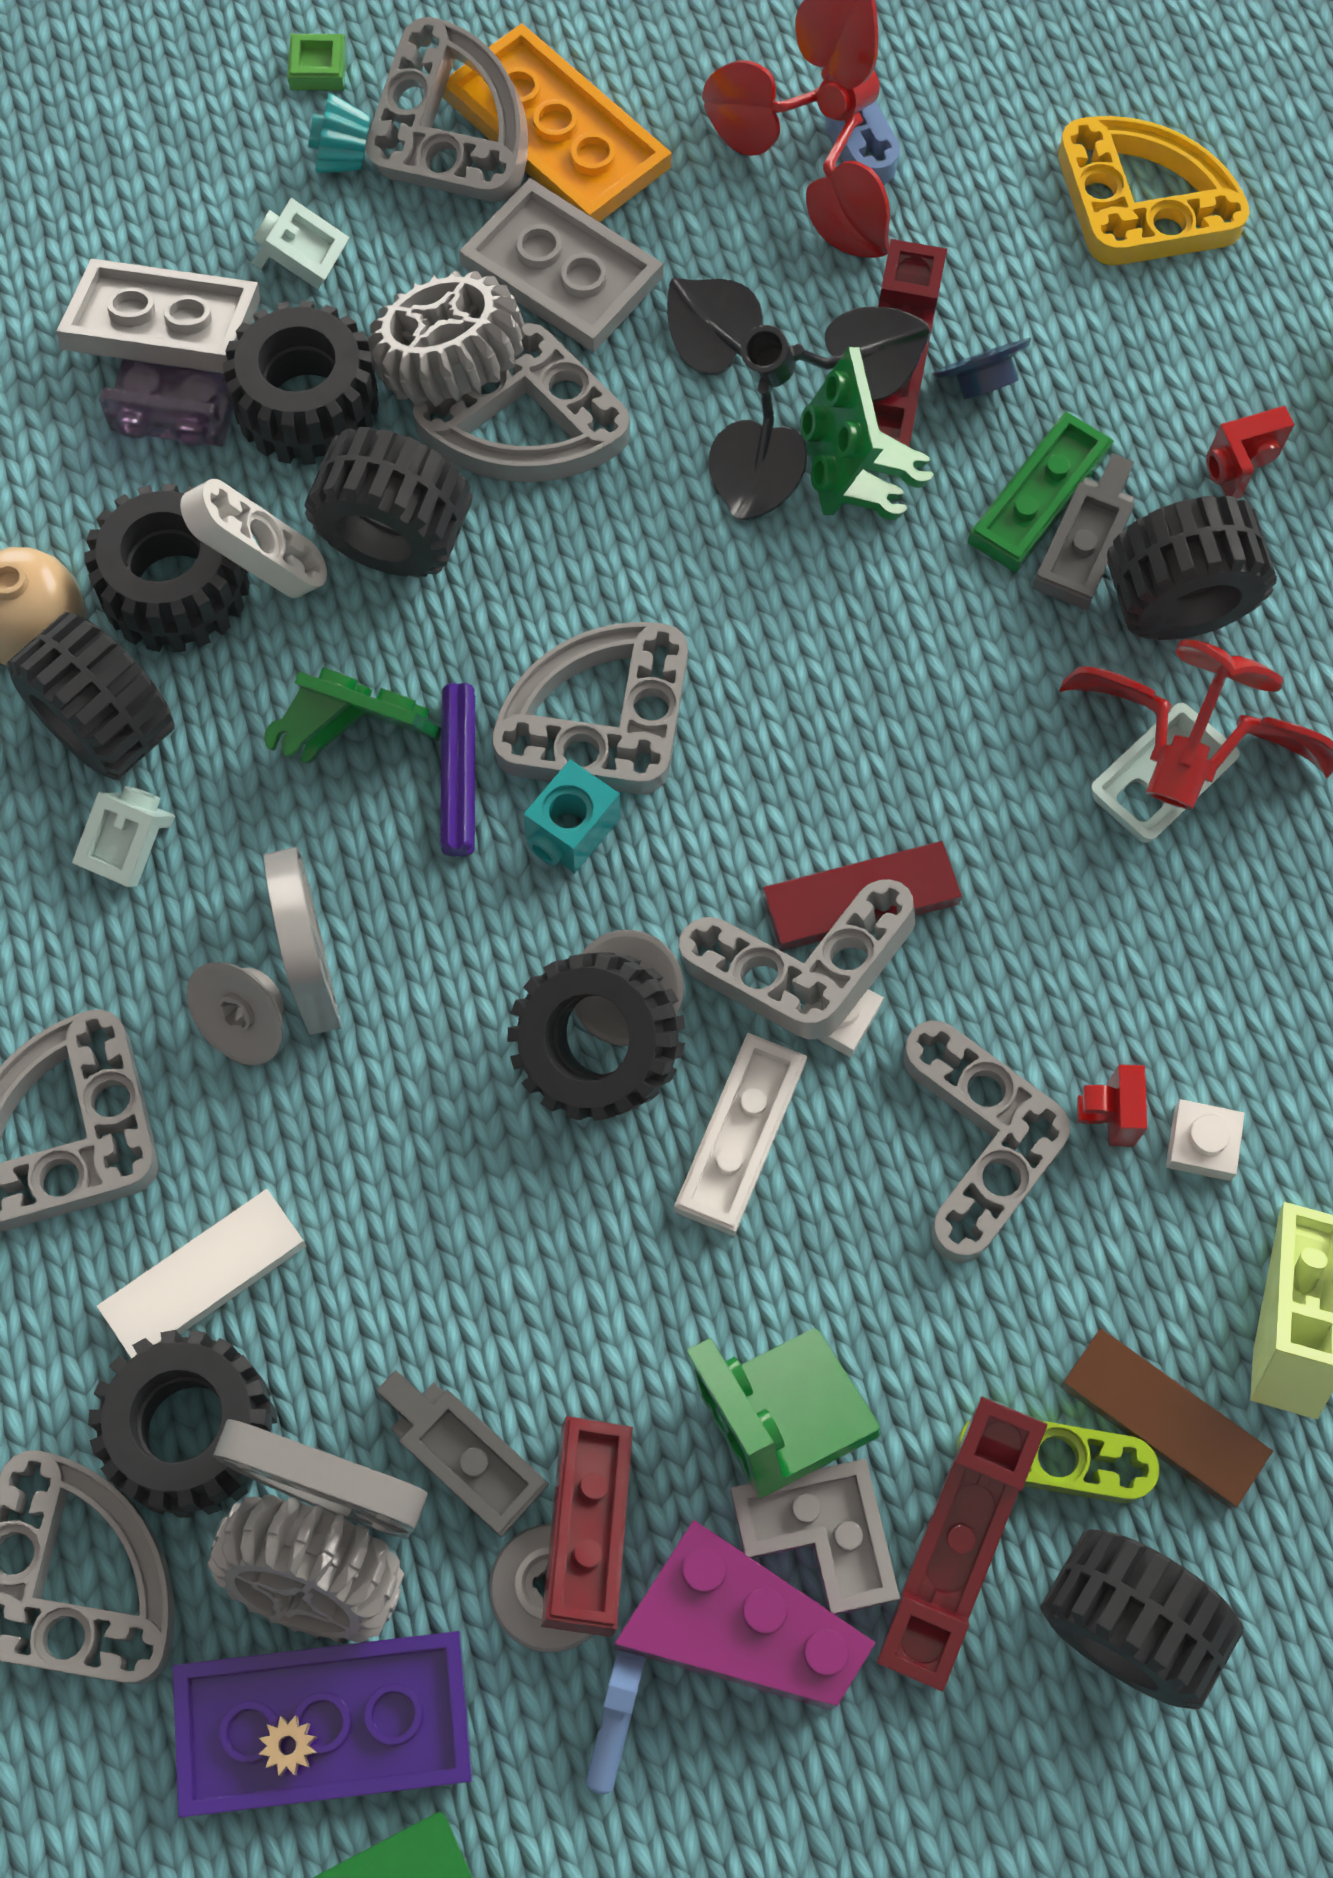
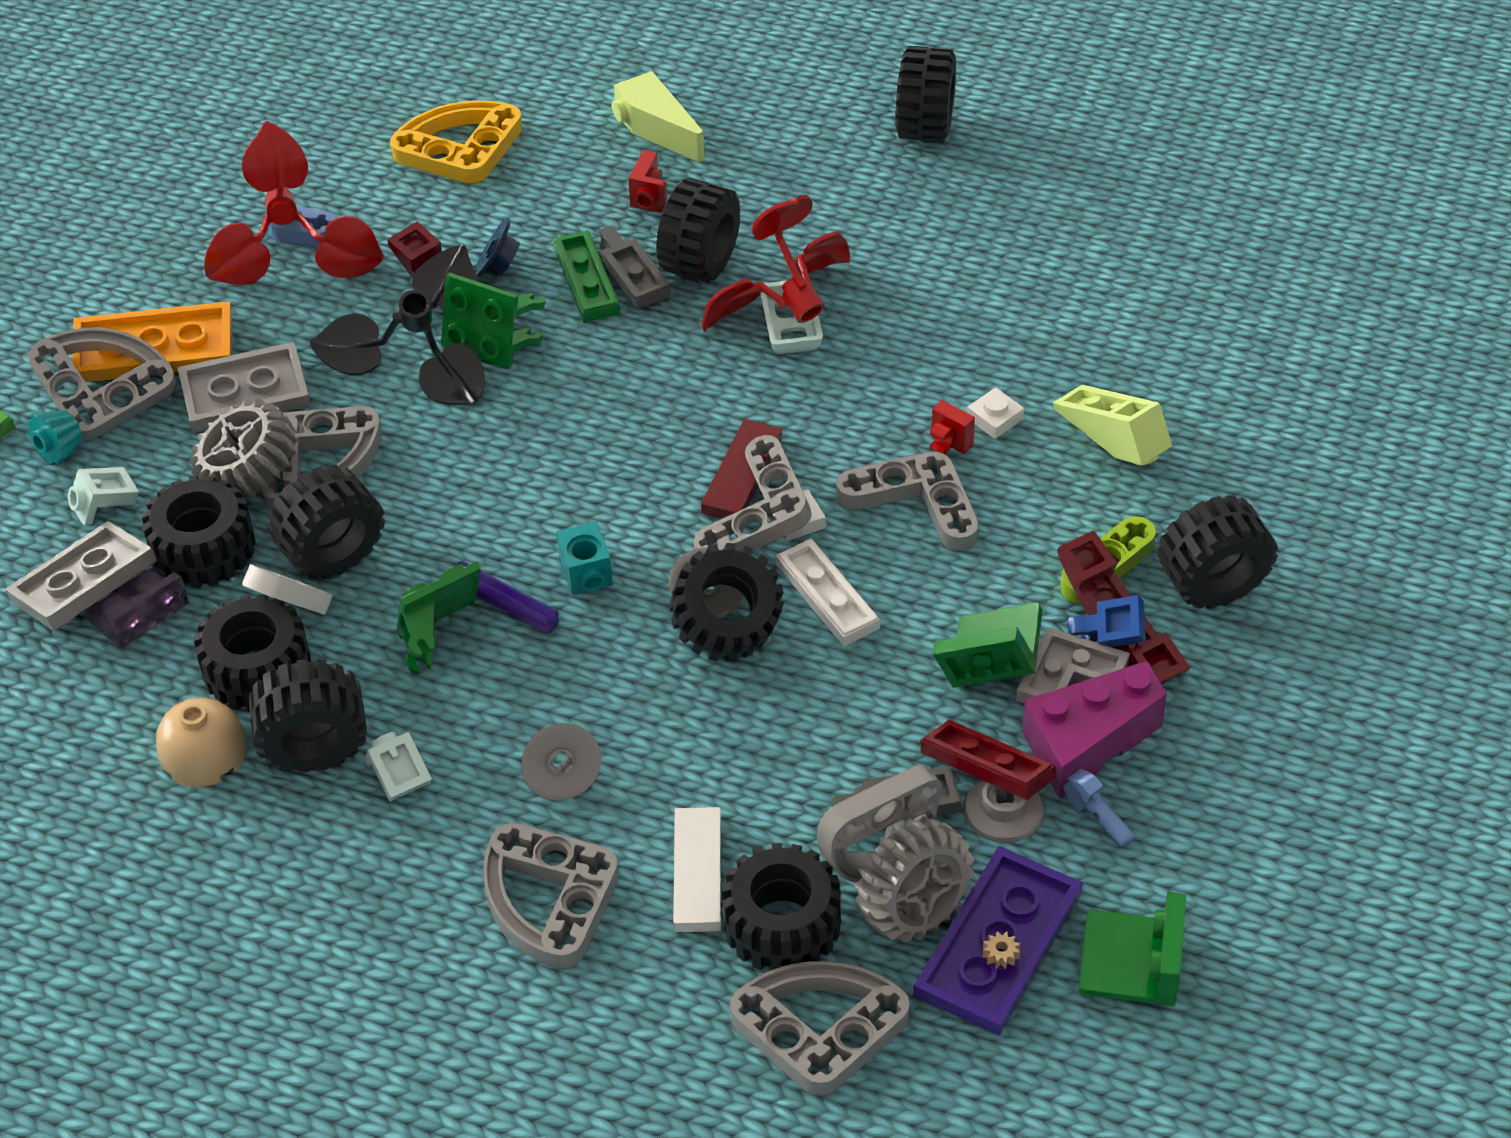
camera: 50 degrees left, 20 degrees down
(301, 940) = (579, 678): light grey beam -> none
(634, 733) = (556, 516): light grey beam -> none
(928, 1548) = (1115, 624): none -> blue plate
(1167, 1418) = (1102, 511): reddish brown tile -> none

